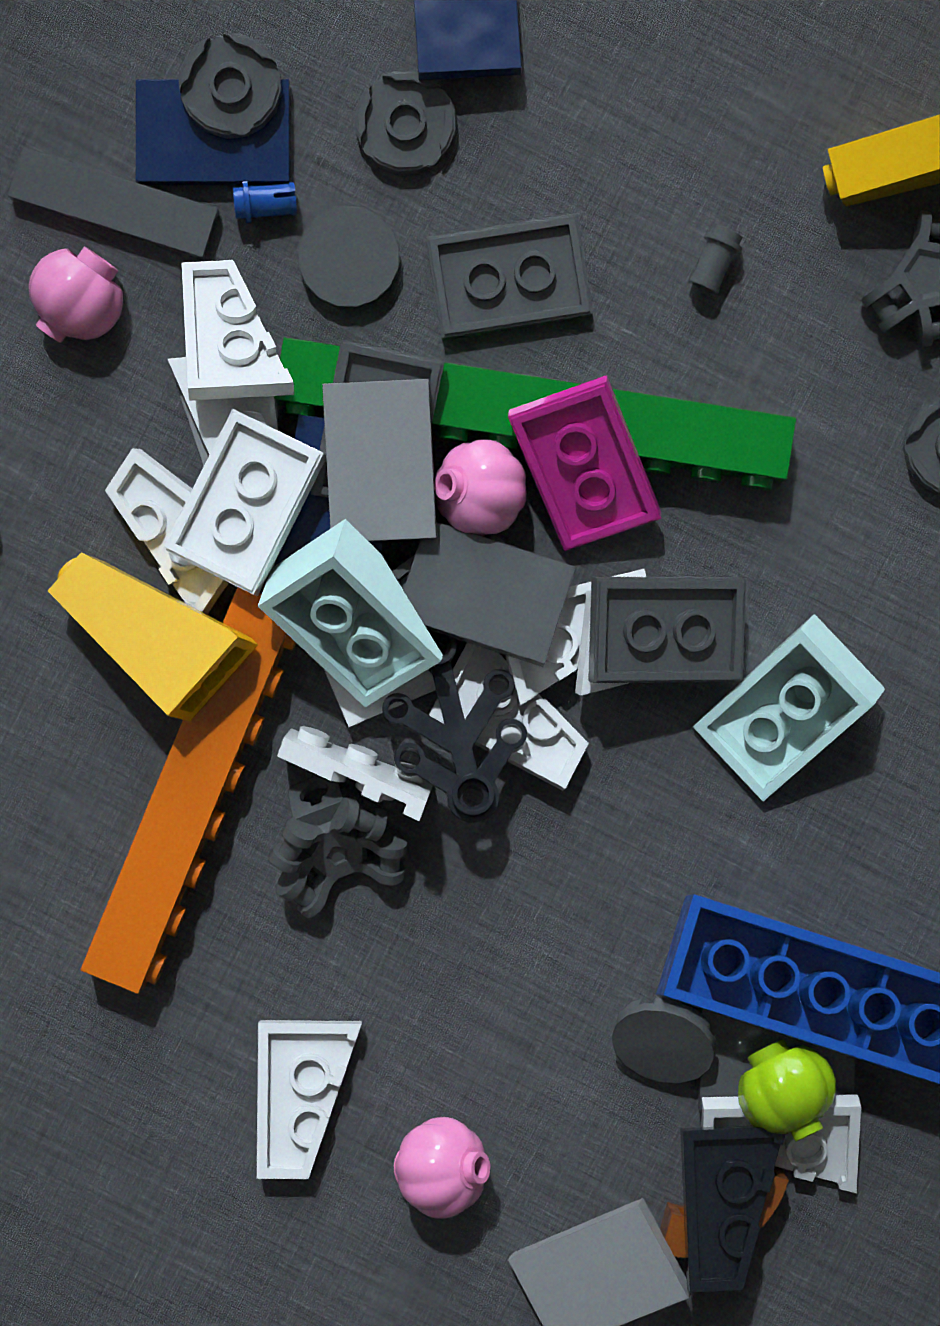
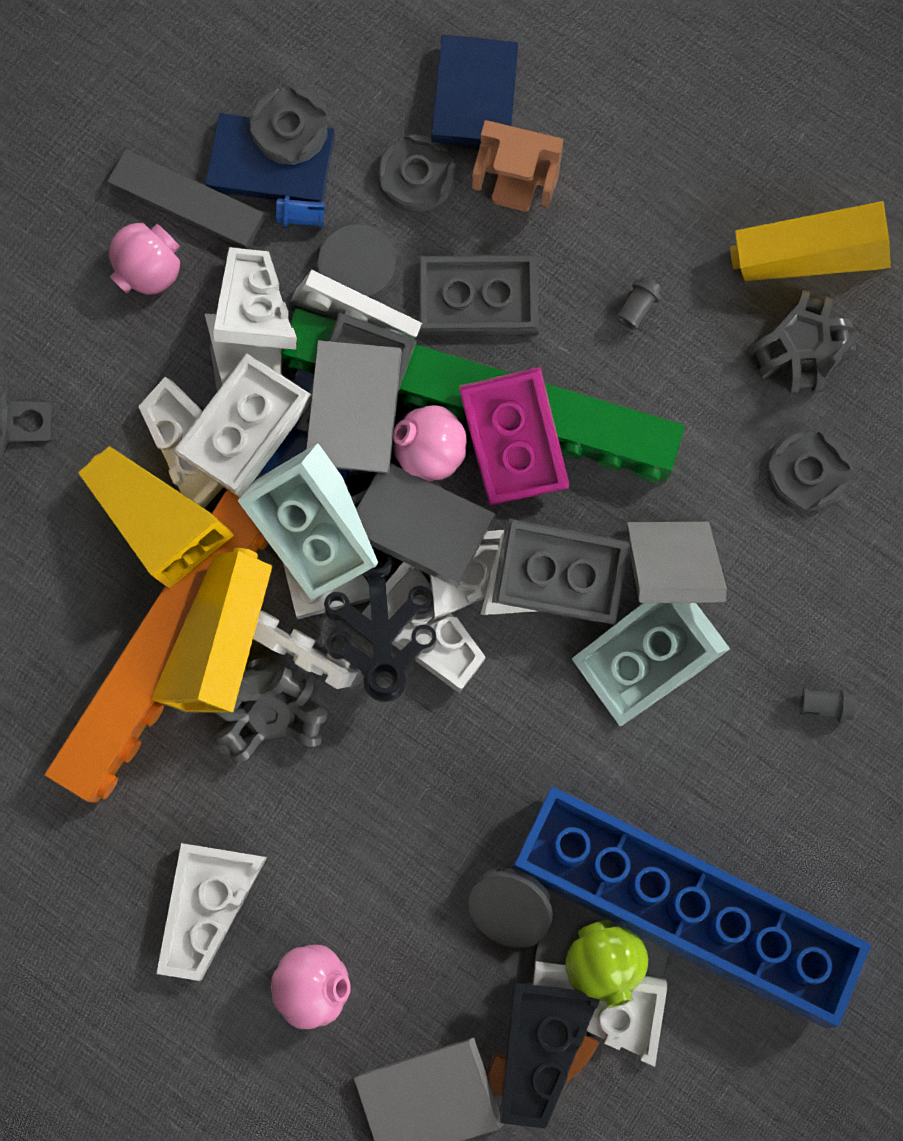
camera: 10 degrees right, 10 degrees down
(259, 773) = (216, 636): none -> yellow slope
(357, 325) = (330, 298): none -> white wing
(537, 100) = (521, 163): none -> nougat panel
(806, 596) = (675, 562): none -> light grey tile

